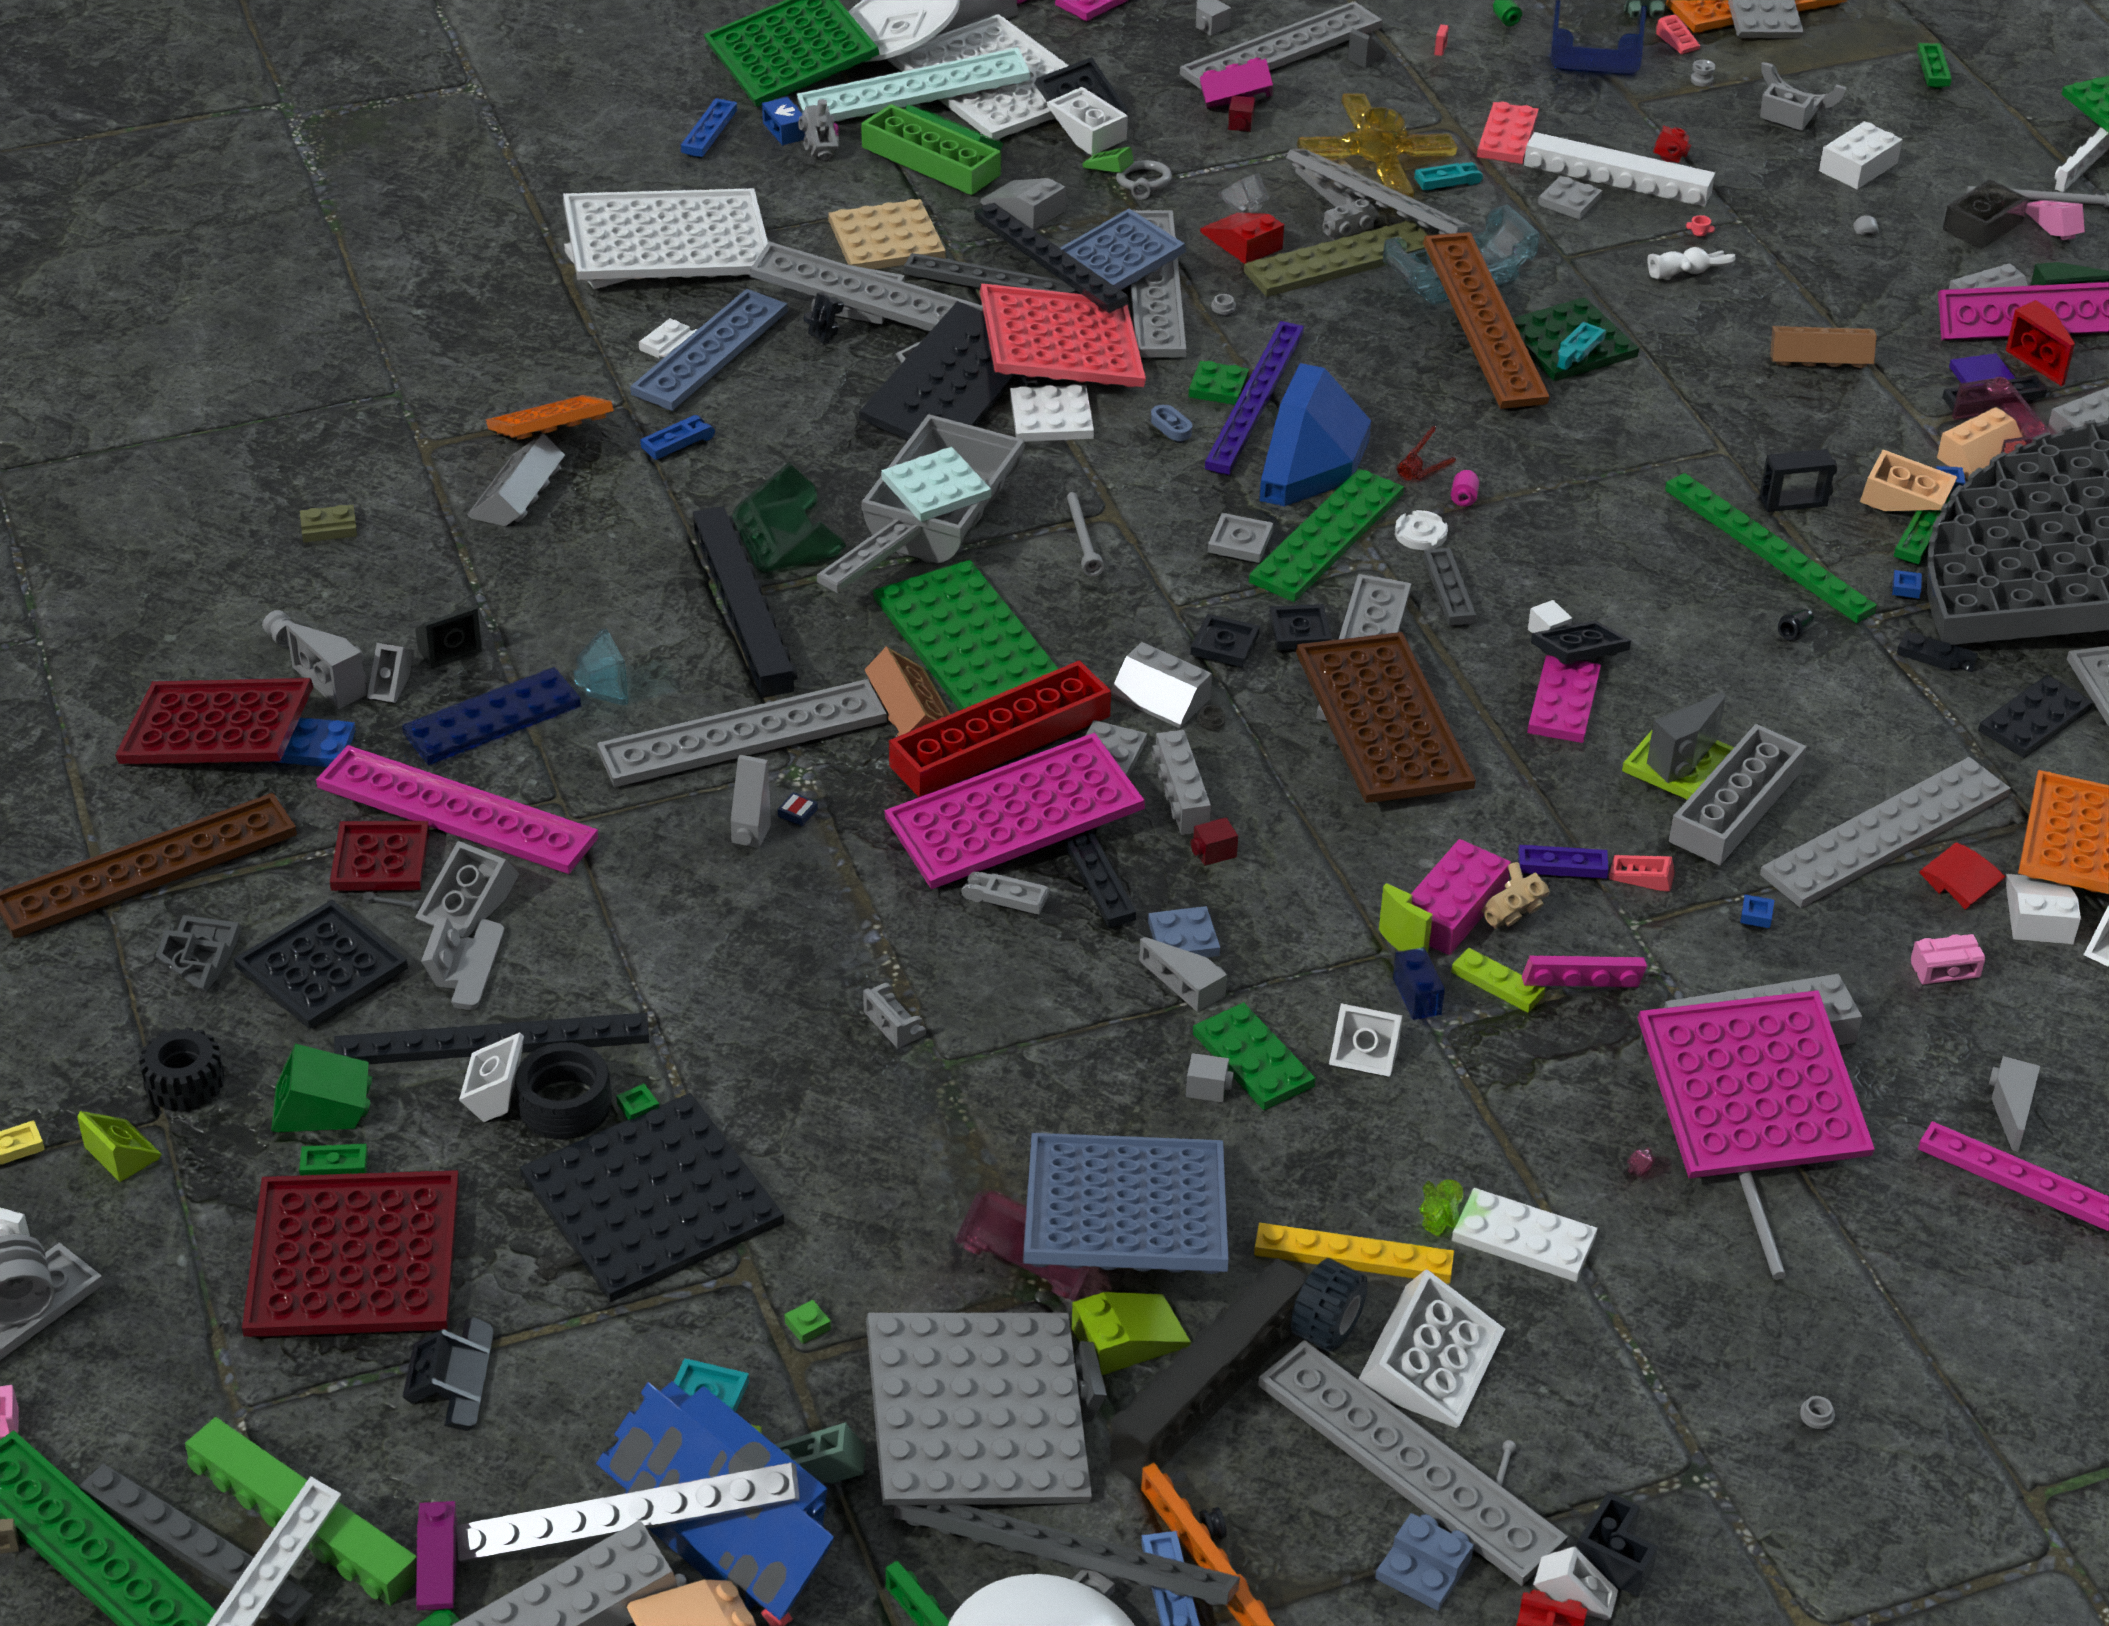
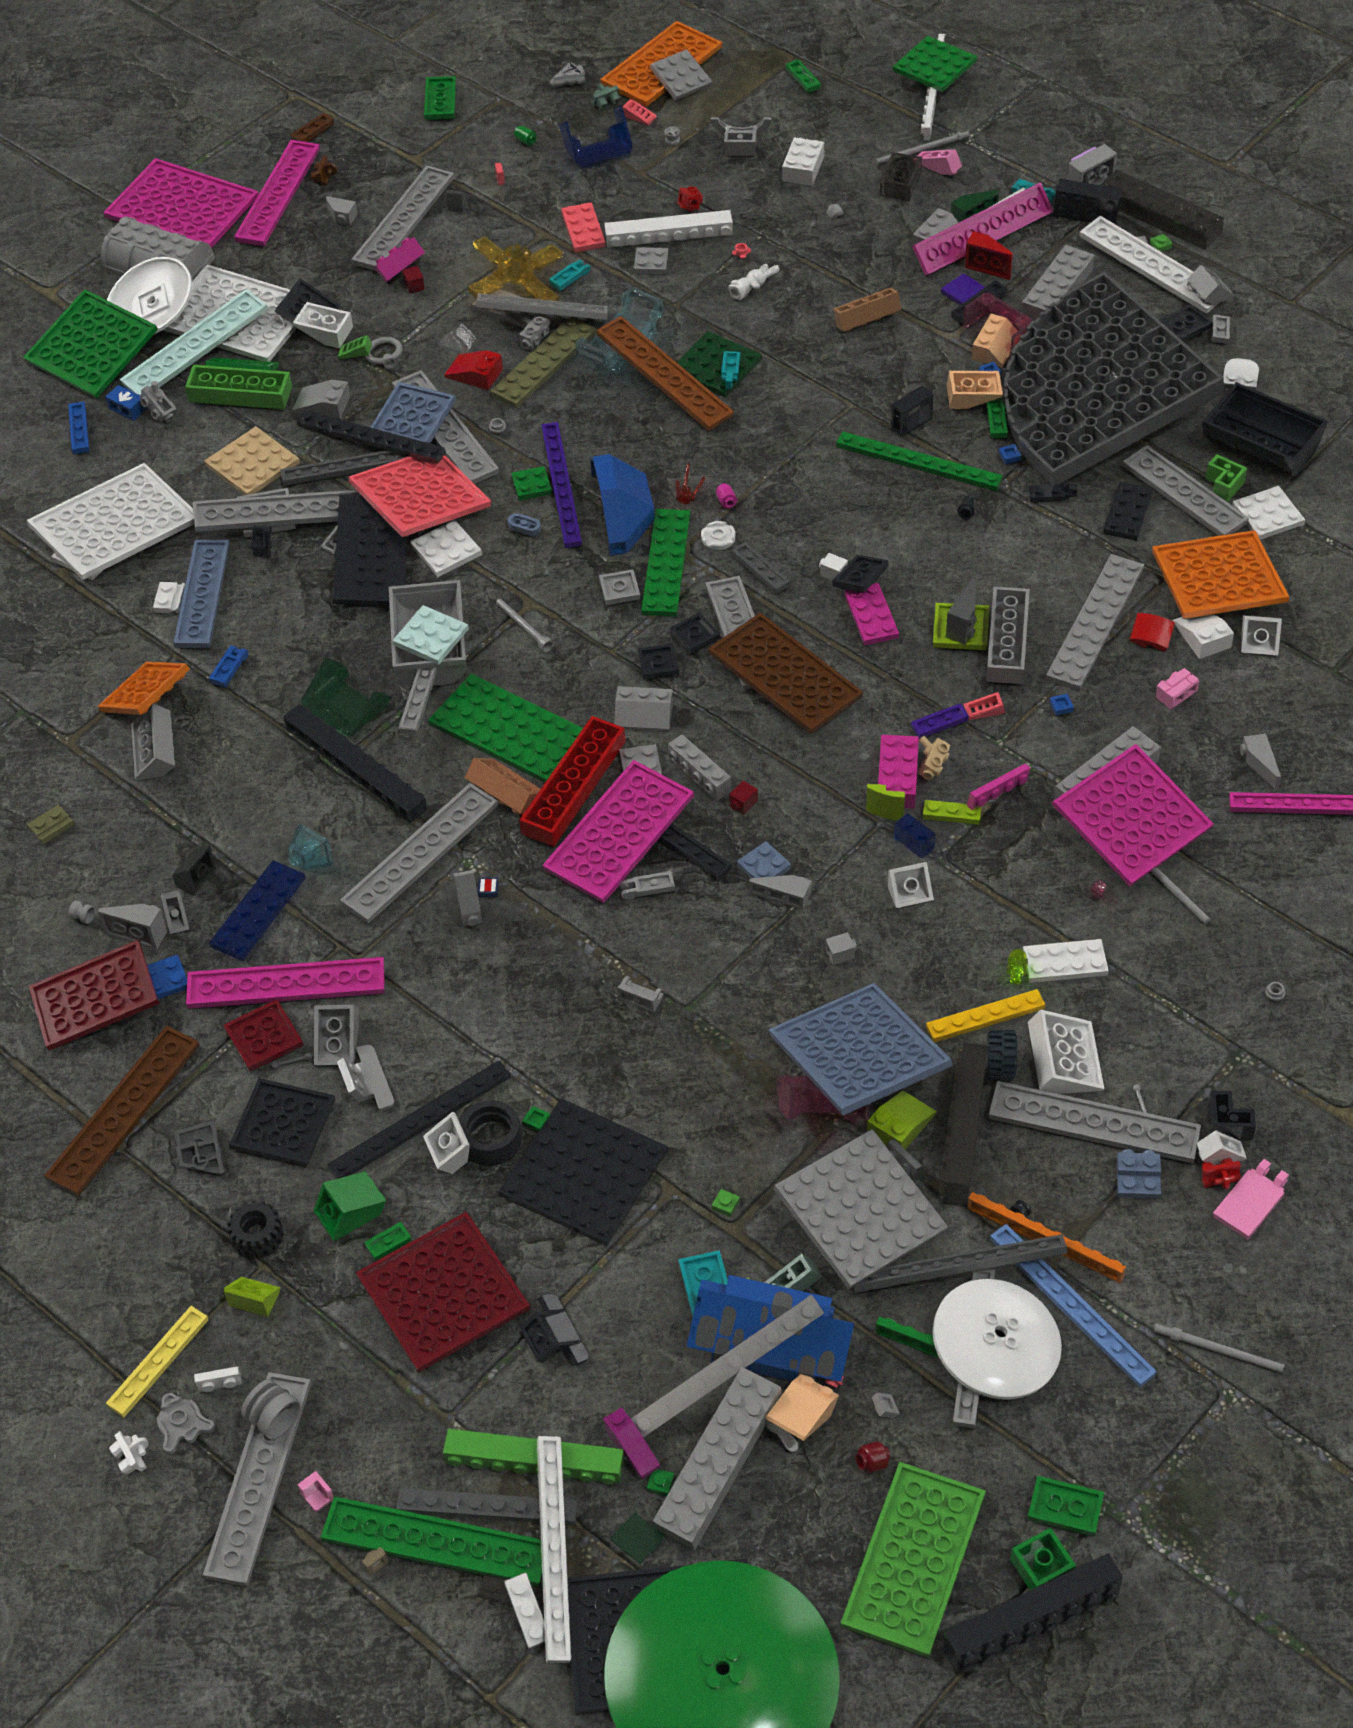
camera: 25 degrees left, 10 degrees up
(1255, 1056) = (862, 924): green plate -> none

